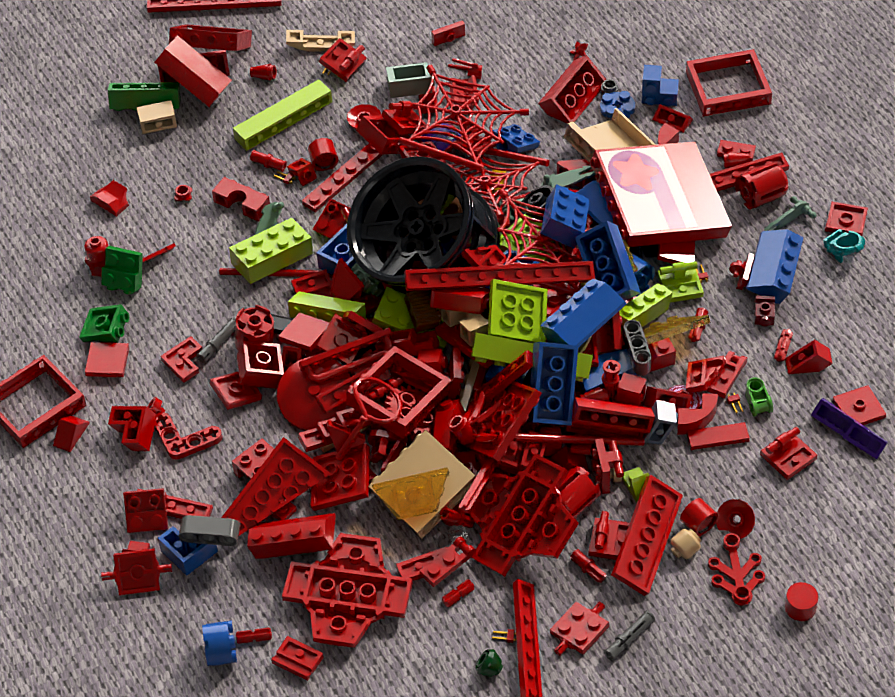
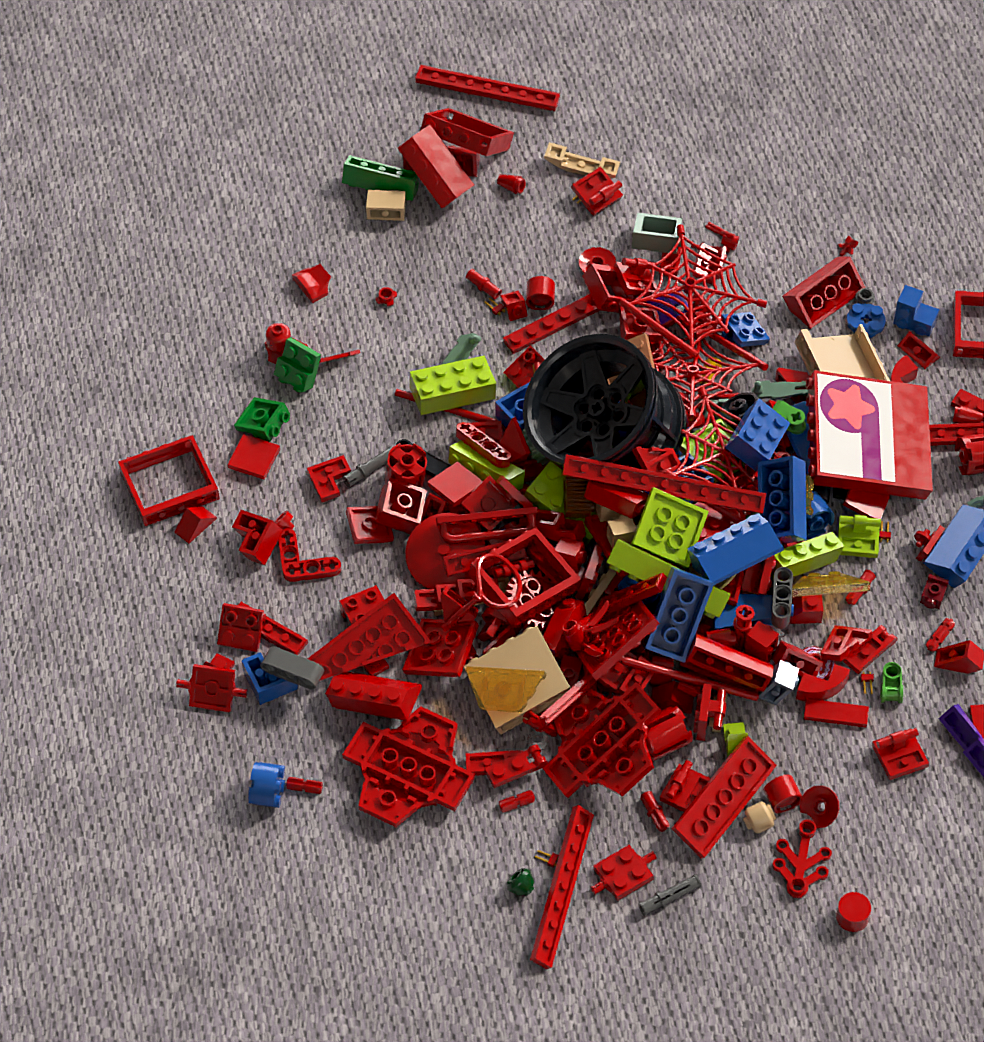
camera: 15 degrees right, 5 degrees up
(230, 191) = (433, 308): arch -> none
(282, 115) = (514, 236): lime brick -> none
(297, 658) = (338, 821): red plate -> none
(318, 292) = (483, 445): none -> red beam
(448, 33) = (717, 189): red plate -> none
(588, 192) = (791, 414): none -> bright green piece

